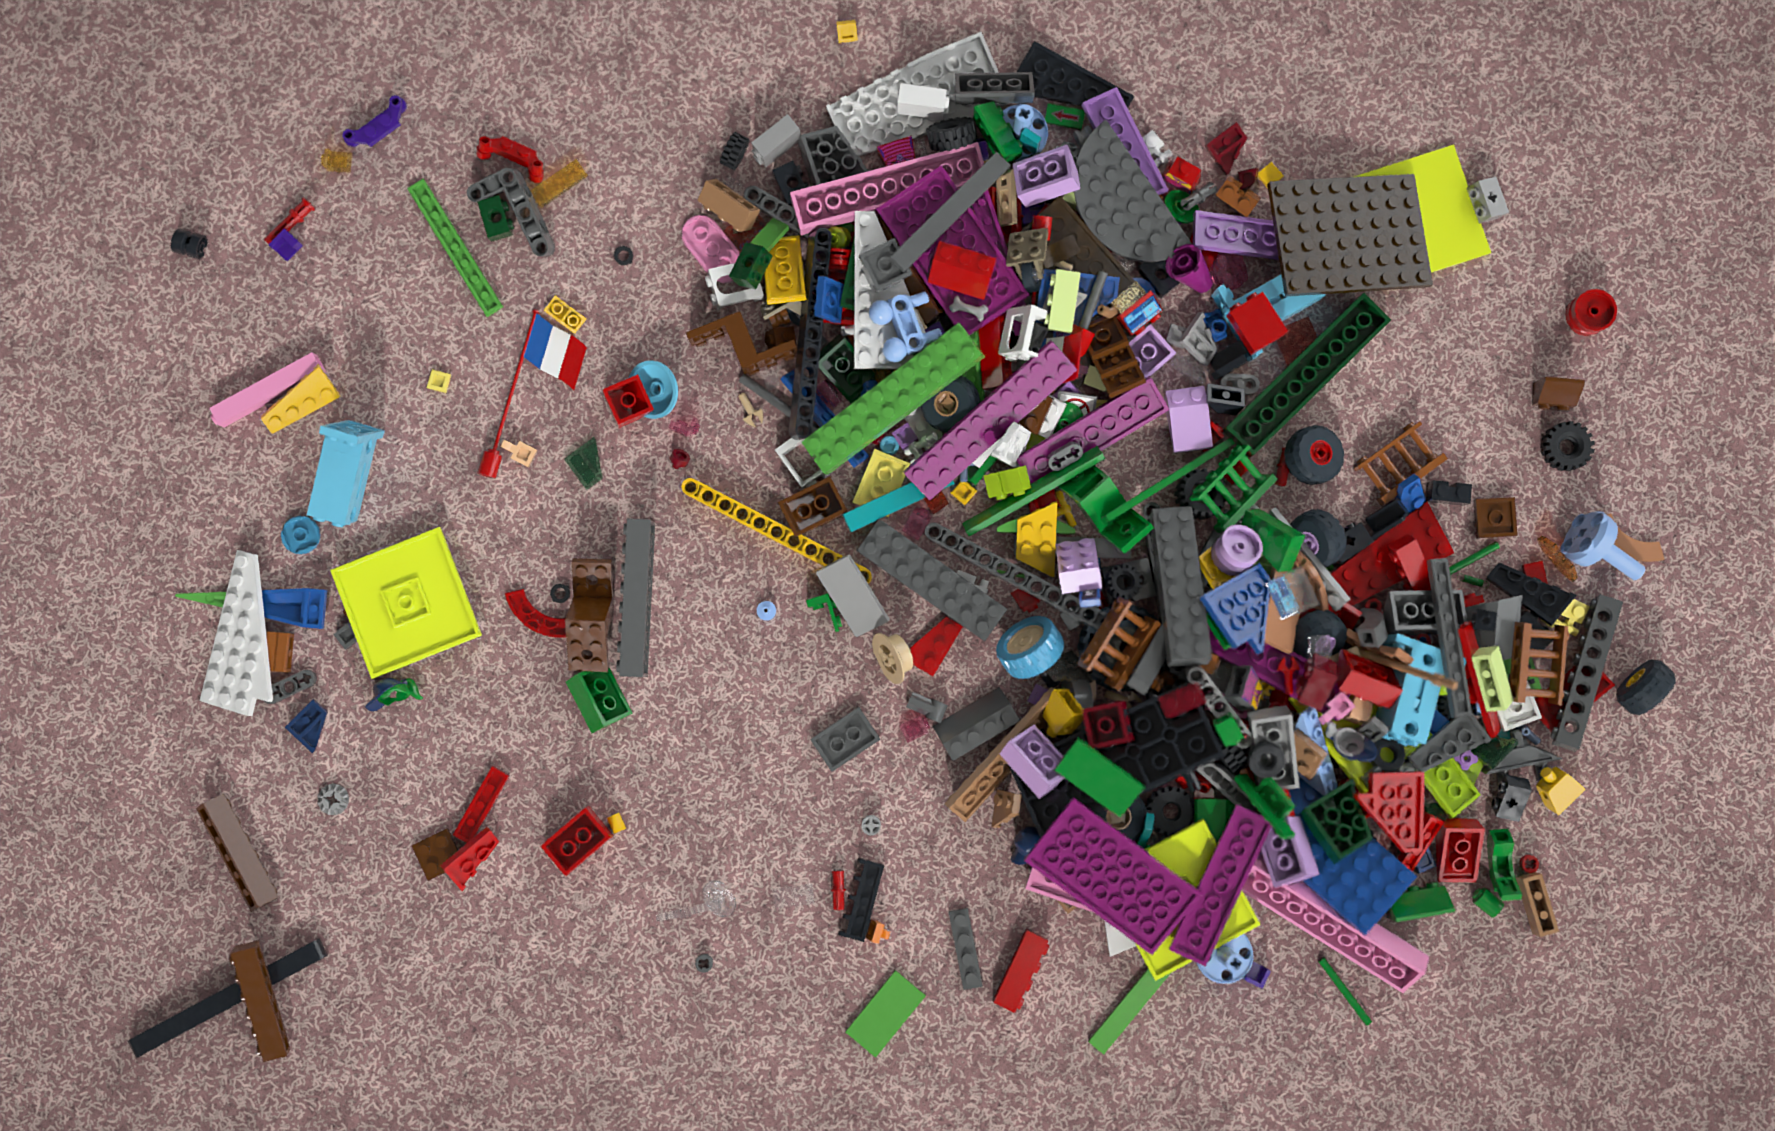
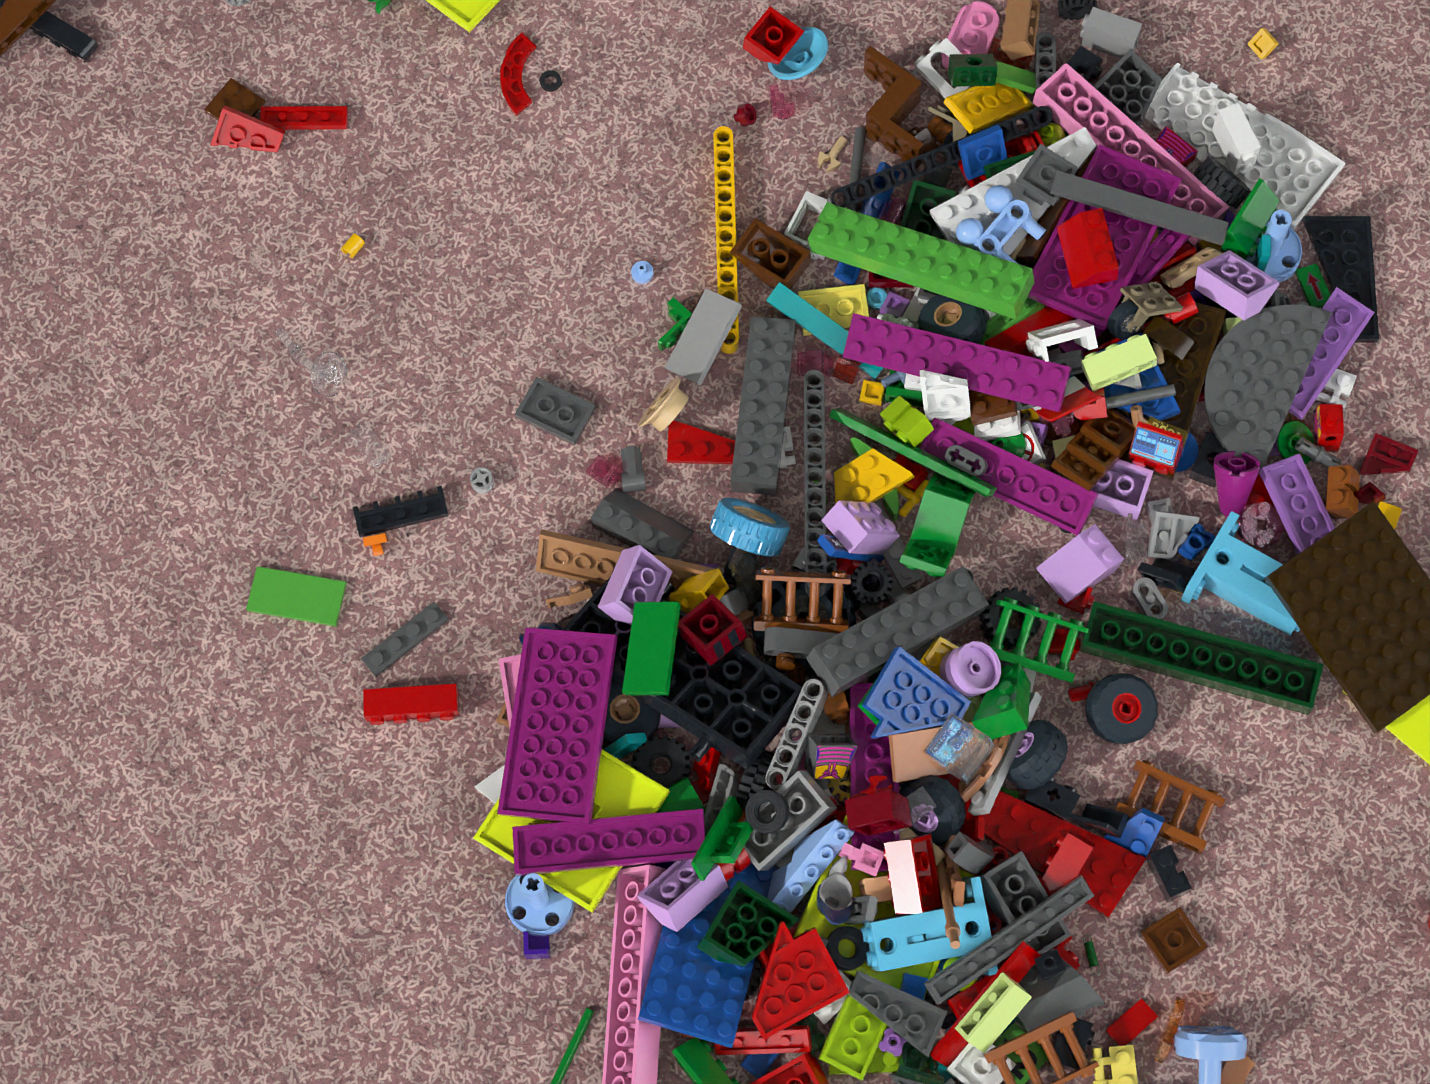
camera: 60 degrees right, 15 degrees down
(577, 841) = (315, 216): red brick -> none
(586, 464) = (690, 37): clear green wing -> none
(589, 615) = (543, 109): reddish brown bracket -> none
(598, 699) = (468, 165): green slope -> none
(636, 598) = (584, 144): dark grey brick -> none
(703, 957) = (256, 390): dark grey bush -> none
(838, 890) = (398, 484): red axle -> none
(959, 305) = (1057, 288): light grey piece -> none
(994, 87) = (1294, 196): dark grey slope -> none
(1025, 601) = (795, 509): red bracket -> none
(1125, 1011) = (429, 836): bright green tile -> none
(1167, 481) = (1000, 572): green tile -> none
(1183, 700) = (779, 685): dark red brick -> none
(1225, 398) = (1123, 586): black slope -> none
(1228, 729) = (775, 751): green brick -> none
(1256, 322) = (1218, 564): red brick -> none
(1297, 338) = (1236, 627): clear red tile -> none
(1308, 755) = (797, 857): medium nougat wing -> none
(1474, 557) = (1107, 936): green bar -> none
(1538, 597) = (1114, 1021): black wing -> none
(1557, 392) = (1347, 929): reddish brown slope -> none
(1580, 440) = (1302, 957): black tyre -> none

